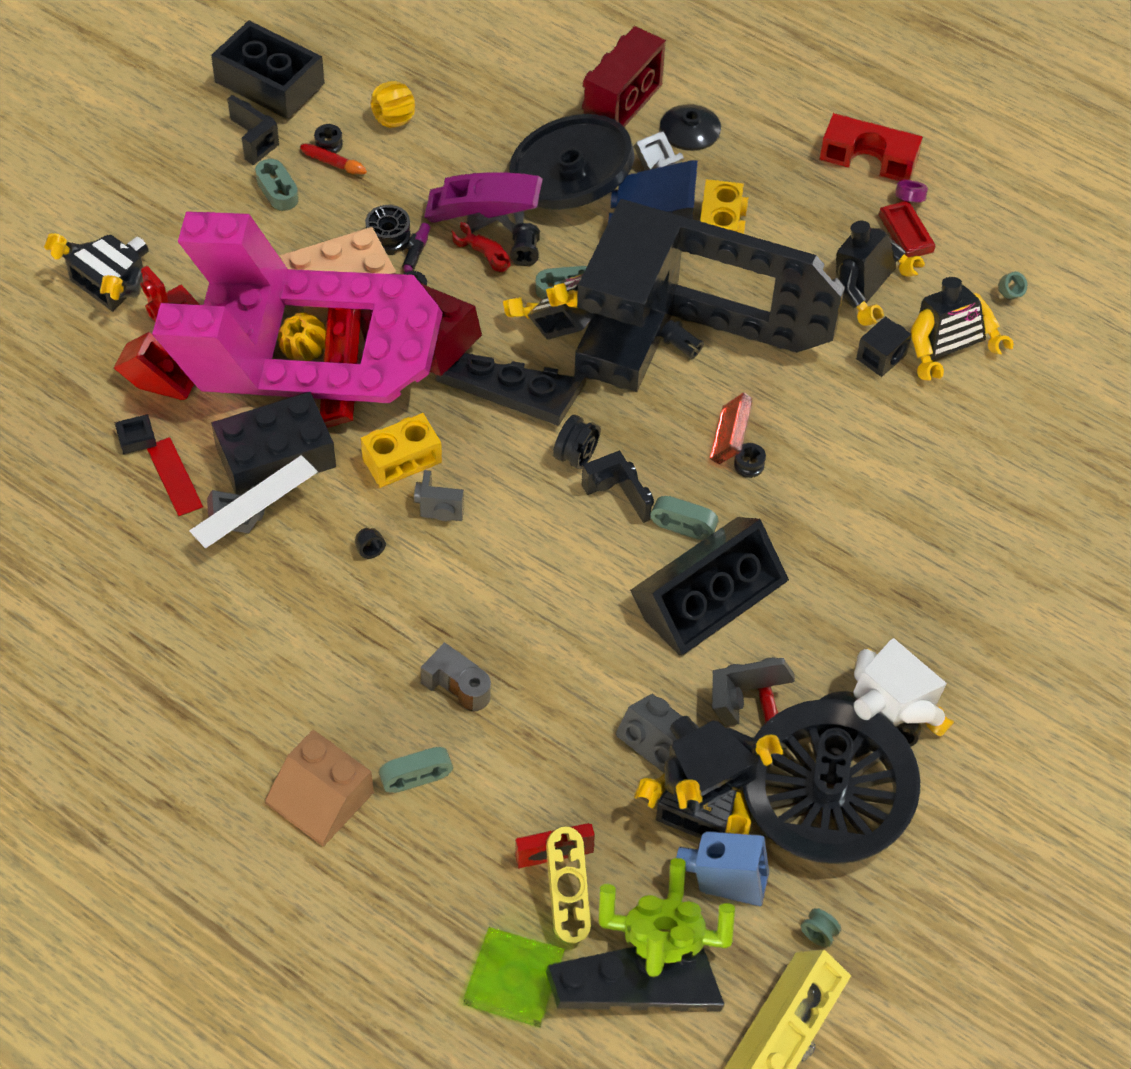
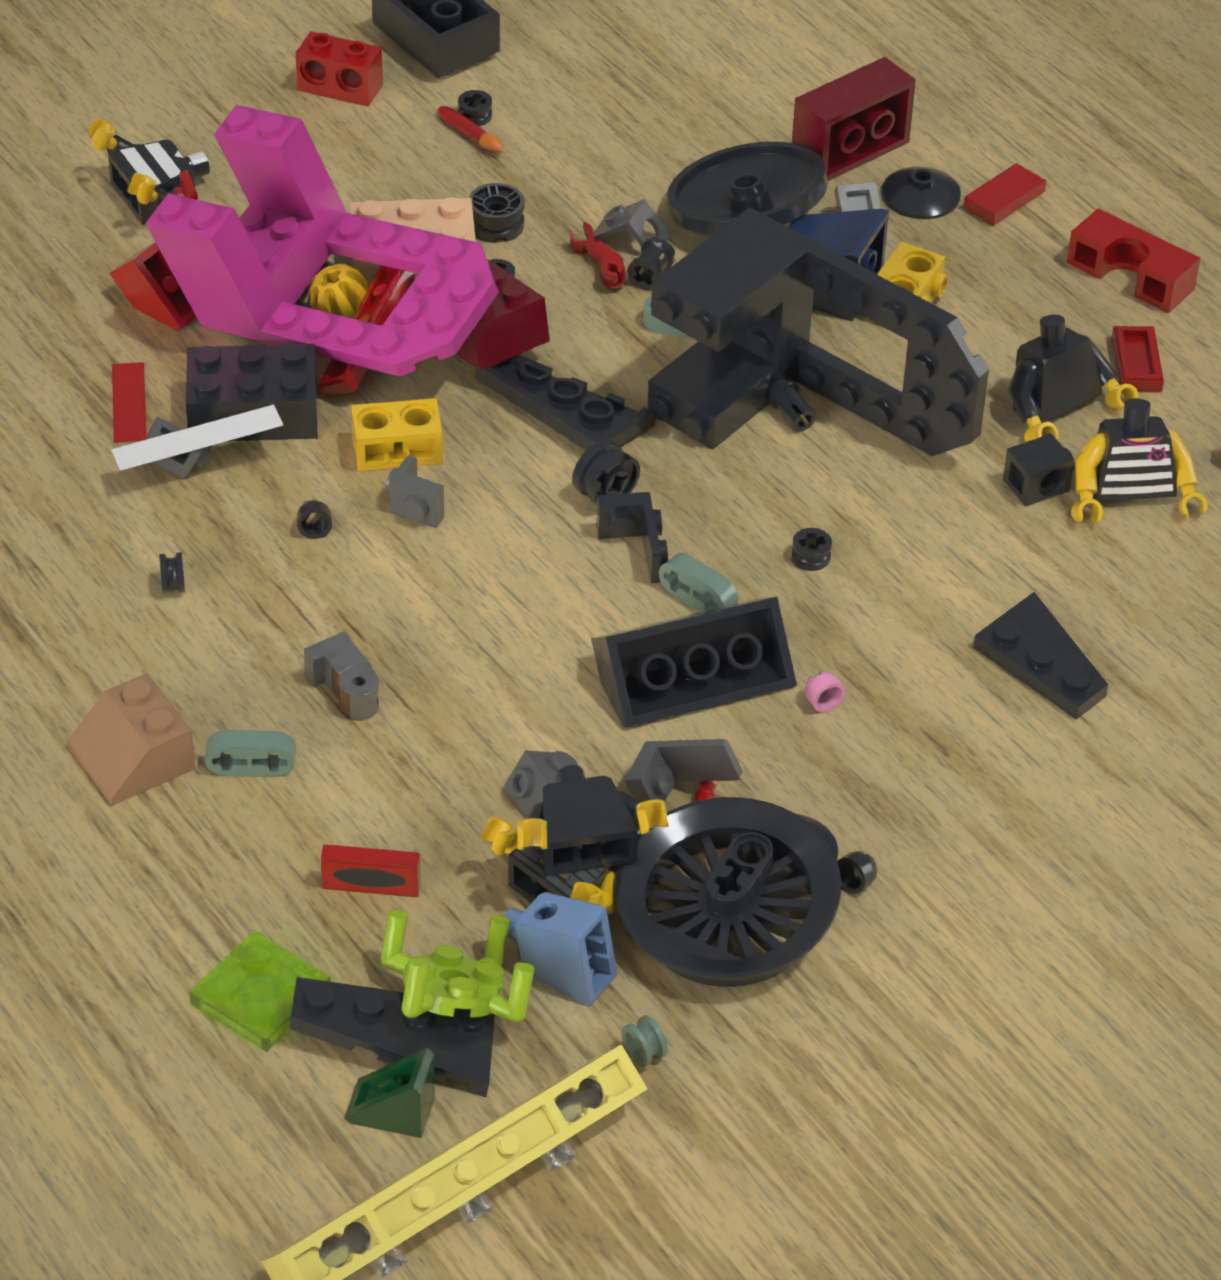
camera: 20 degrees right, 10 degrees down
(135, 434) = (105, 348): black tile -> none
(210, 132) = (339, 68): none -> red brick
(261, 129) = (396, 85): black bracket -> none
(271, 186) = (396, 139): sand green beam -> none
(282, 625) = (172, 572): none -> black bush
(392, 104) = (565, 86): yellow piece -> none
(415, 245) = (522, 237): black piece -> none
(483, 193) = (618, 190): magenta slope -> none
(556, 313) = (644, 339): torso -> none
(580, 914) = (367, 946): light yellow beam -> none
(660, 1039) = (396, 1096): none -> dark green slope
(731, 428) = (803, 509): clear red tile -> none
(752, 113) = (1004, 194): none -> red tile
(814, 581) = (833, 690): none -> bright pink hinge
(899, 688) = (859, 815): white torso -> none
(911, 191) = (1162, 317): magenta tile -> none
(951, 502) = (1043, 656): none -> black wing

